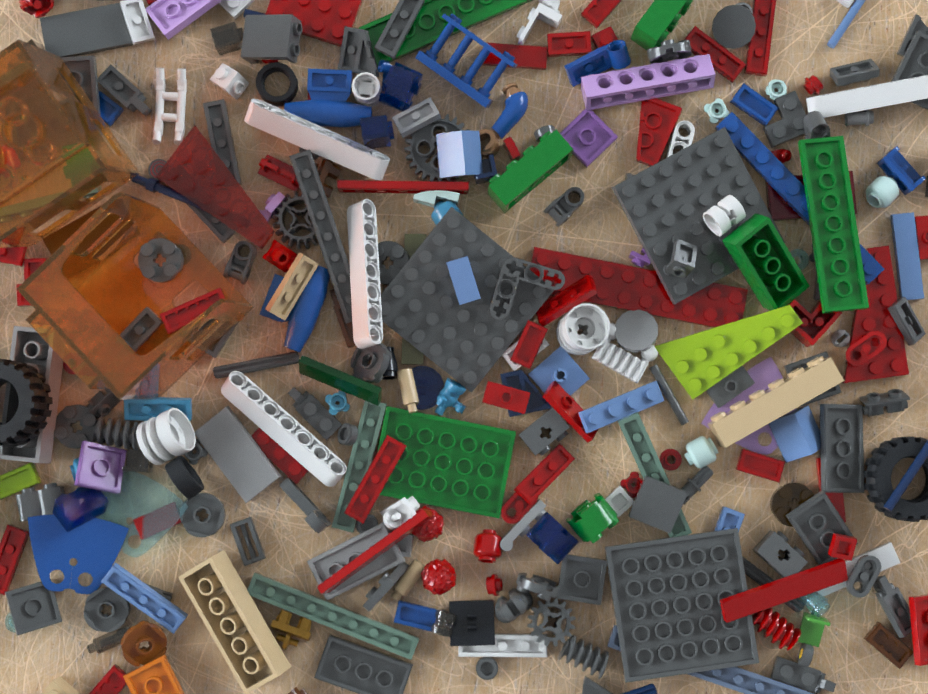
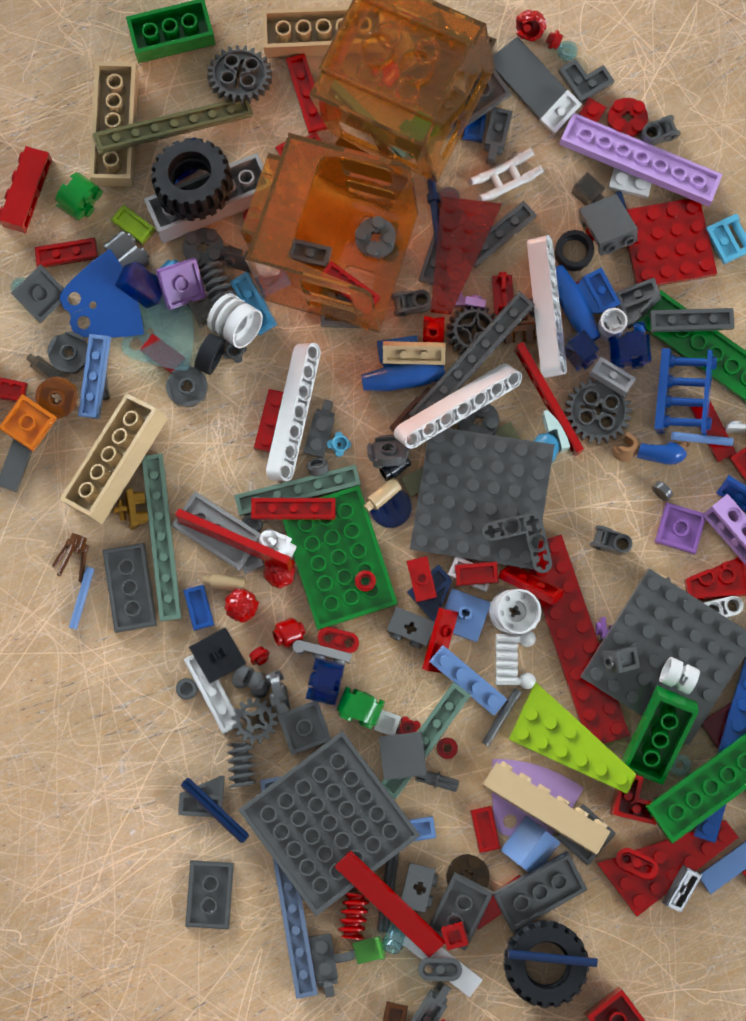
camera: 60 degrees right, 5 degrees down
(229, 81) = (554, 212): white bracket -> none
(237, 454) = (251, 386): light grey tile -> none
(241, 523) = (173, 448): dark grey tile -> none
(257, 364) = (335, 364): dark grey axle -> none
(315, 517) = (235, 474): dark grey beam -> none
(340, 380) = (358, 435): dark green tile -> none
(386, 582) = (212, 565): dark grey wing -> none
(443, 623) = (200, 632): clear smoke wheel -> none
(448, 397) = (395, 532): dark azure piece -> none
(459, 153) = (603, 428): slope -> none
(463, 280) = (498, 488): medium blue tile -> none
(479, 442) = (365, 574): none -> red plate
(489, 170) = (601, 458): dark blue panel -> none
(511, 149) = (636, 464): red tile -> none
(518, 70) = (701, 438): none -> medium blue bar
(530, 170) = (622, 493): green brick -> none
(544, 474) = (375, 647): red tile -> none
(636, 331) = (539, 658): light grey tile -> none
(701, 452) = (467, 770): light aqua head -> none
(730, 387) = (538, 765): dark grey plate -> none
(836, 335) = (631, 844): light grey hinge -> none
(894, 400) = (595, 899): dark grey hinge -> none

